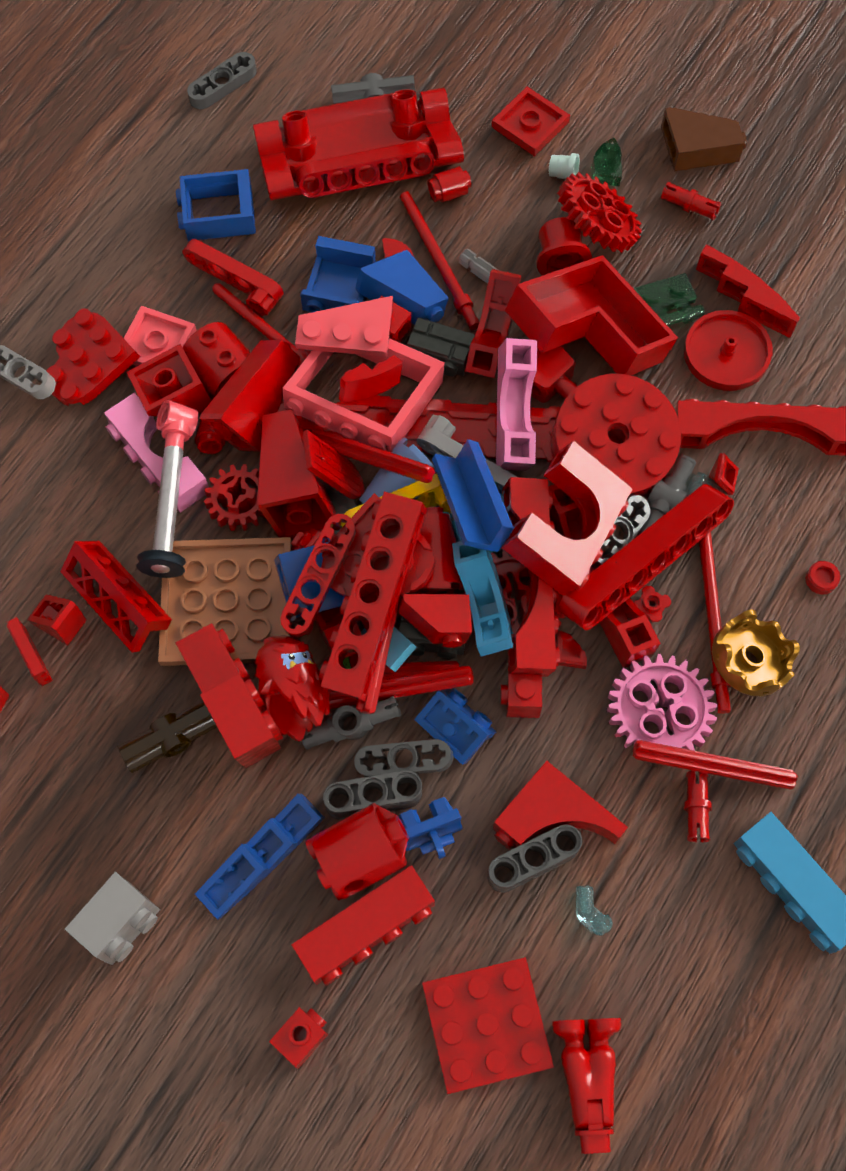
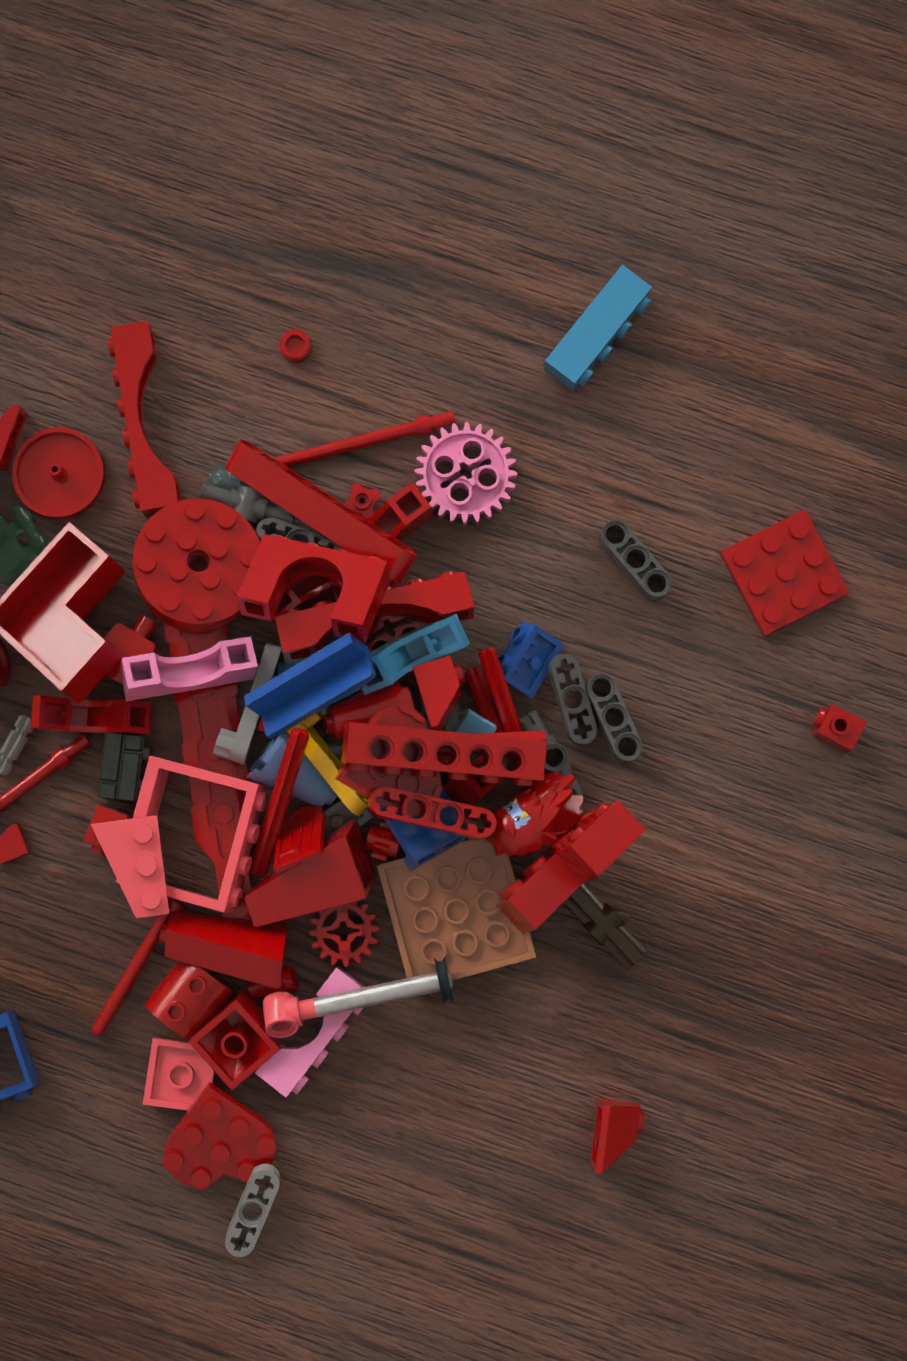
camera: 105 degrees left, 15 degrees up
(28, 651) = (556, 1089): red tile -> none
(58, 618) = (513, 1076): red slope -> none
(113, 920) = (788, 917): light grey brick -> none
(114, 584) = (472, 1022): red fence -> none
(259, 856) = (692, 807): blue slope -> none
(262, 290) = (95, 974): red beam -> none
(335, 274) = (62, 898): blue panel -> none
(359, 850) = (672, 713): red cylinder -> none
(364, 925) = (731, 697): red brick -> none
(368, 382) = (202, 824): red slope -> none
(407, 283) = (61, 822): blue slope -> none
(434, 832) = (637, 672): blue hips -> none
(522, 695) = (488, 602): red brick -> none
(550, 802) = (583, 559): red arch -> none
(570, 651) = (428, 567): red tile -> none
(588, 915) = (670, 503): clear light blue arm -> none
(590, 1079) = (804, 477): red piece -> none
(697, 806) = (550, 426): red pin -> none
(714, 764) = (511, 417): red axle -> none
(724, 474) = (206, 454): red slope -> none
(766, 642) = (389, 380): pearl gold plate -> none

